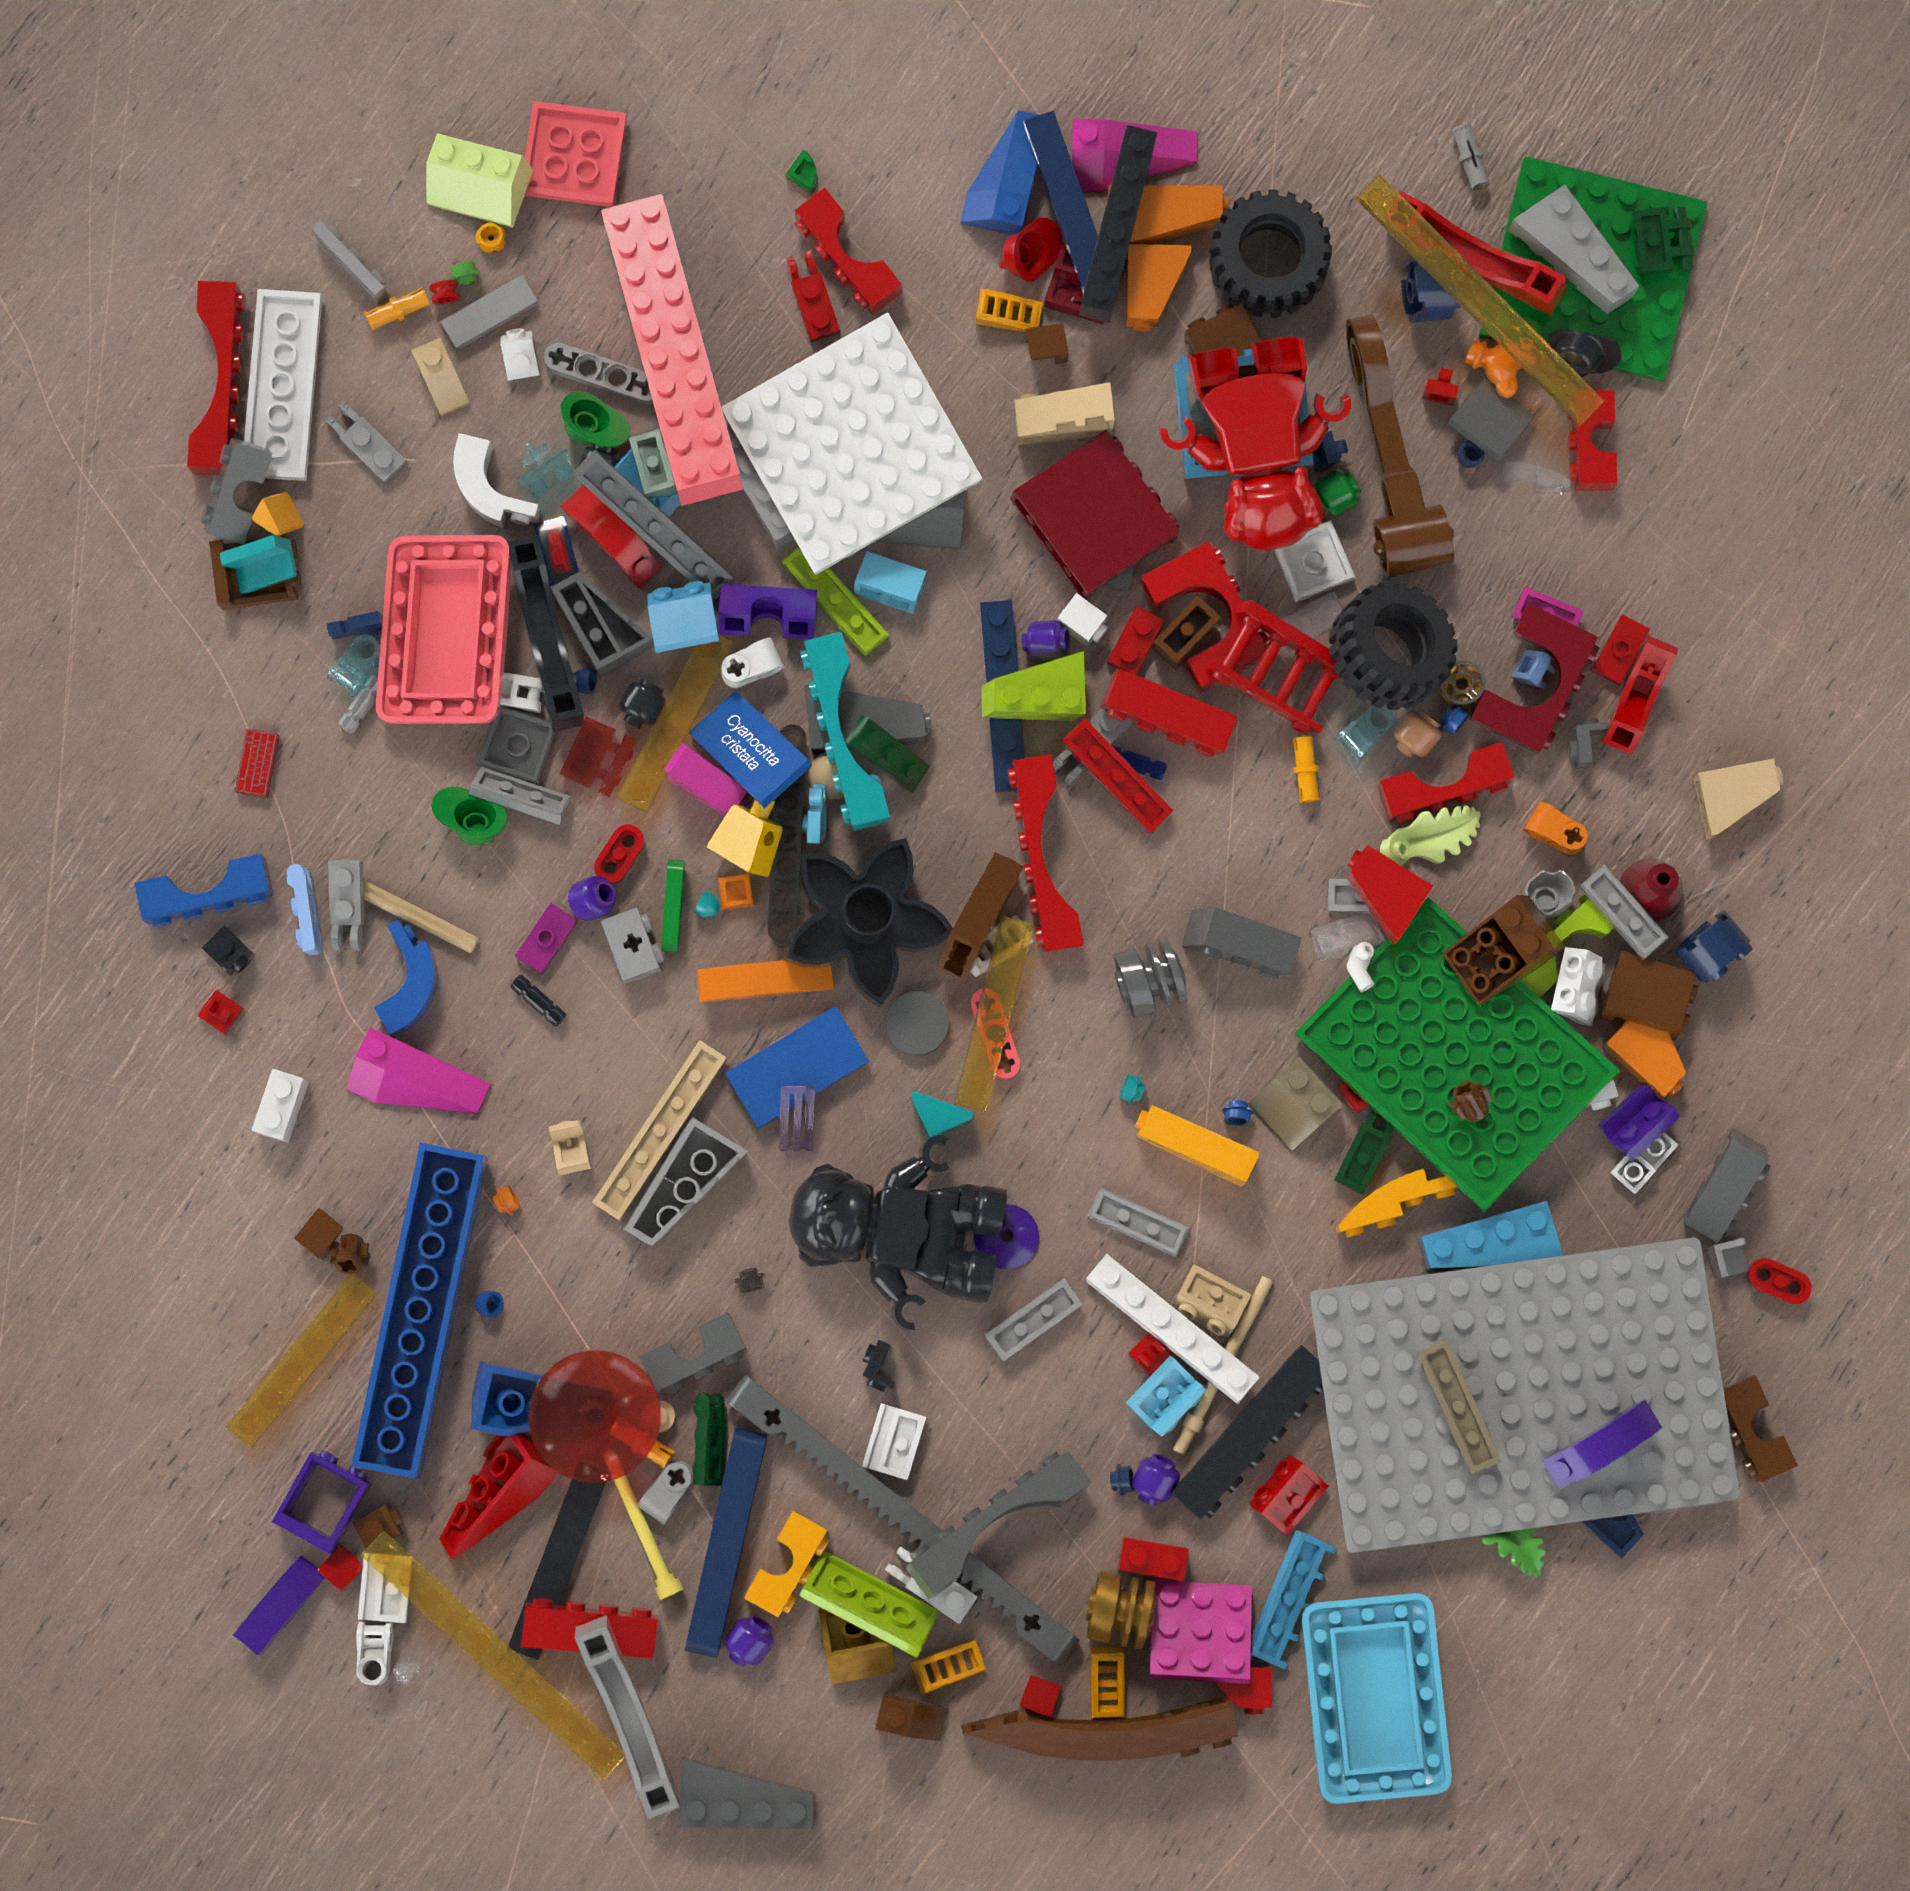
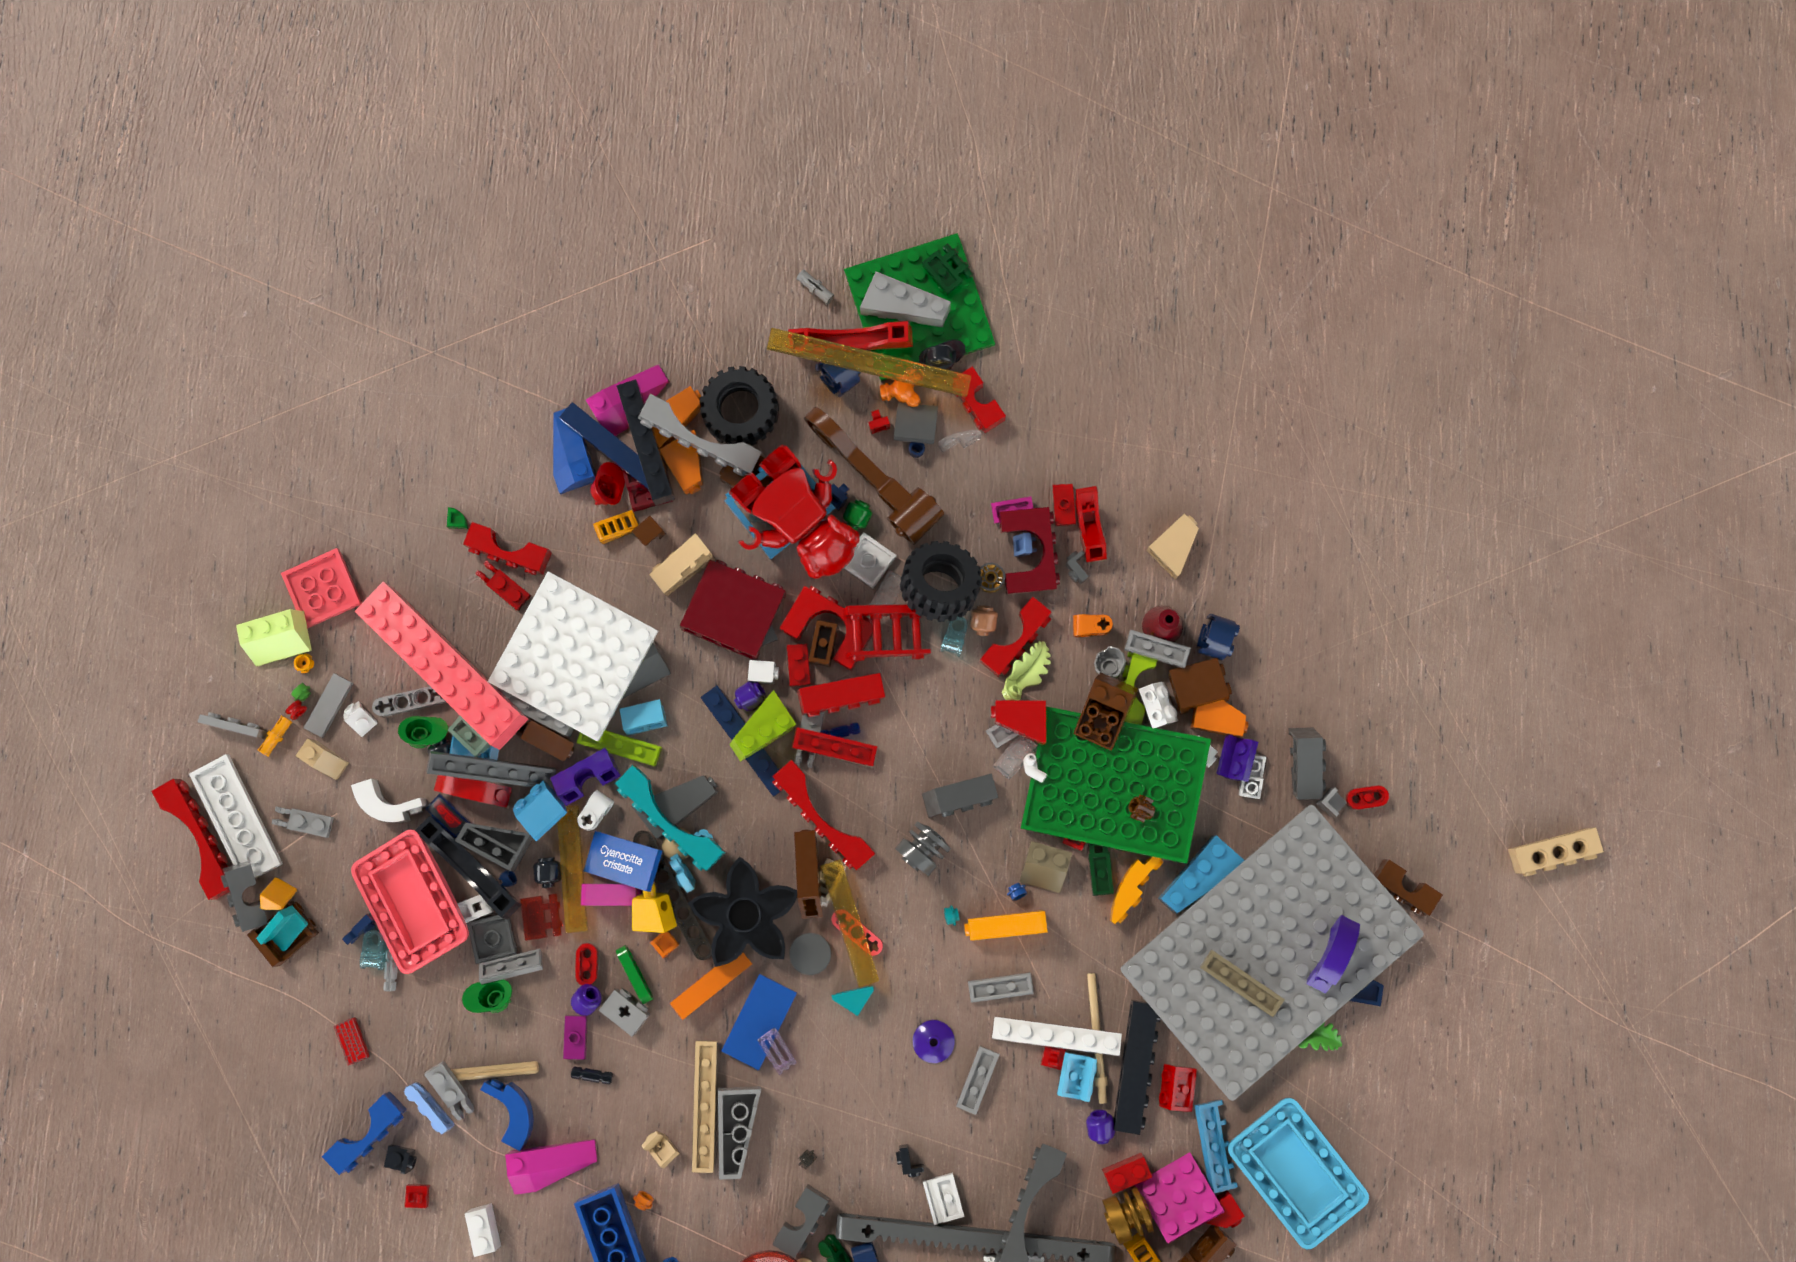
camera: 25 degrees left, 0 degrees up
(532, 478) = (409, 783): clear light blue hips -> none
(708, 905) = (653, 961): teal hinge -> none
(746, 531) = (546, 739): none -> reddish brown slope
(887, 754) = (700, 815): dark green plate -> none
(902, 1229) = (875, 1078): black piece -> none
(1122, 1479) = (1081, 1138): dark blue plate -> none
(1161, 201) = (660, 415): none -> light grey arch
(1211, 1301) = (1068, 1006): tan bracket -> none
(1306, 769) = (935, 677): light orange pin -> none
(1453, 719) = (998, 599): blue plate -> none

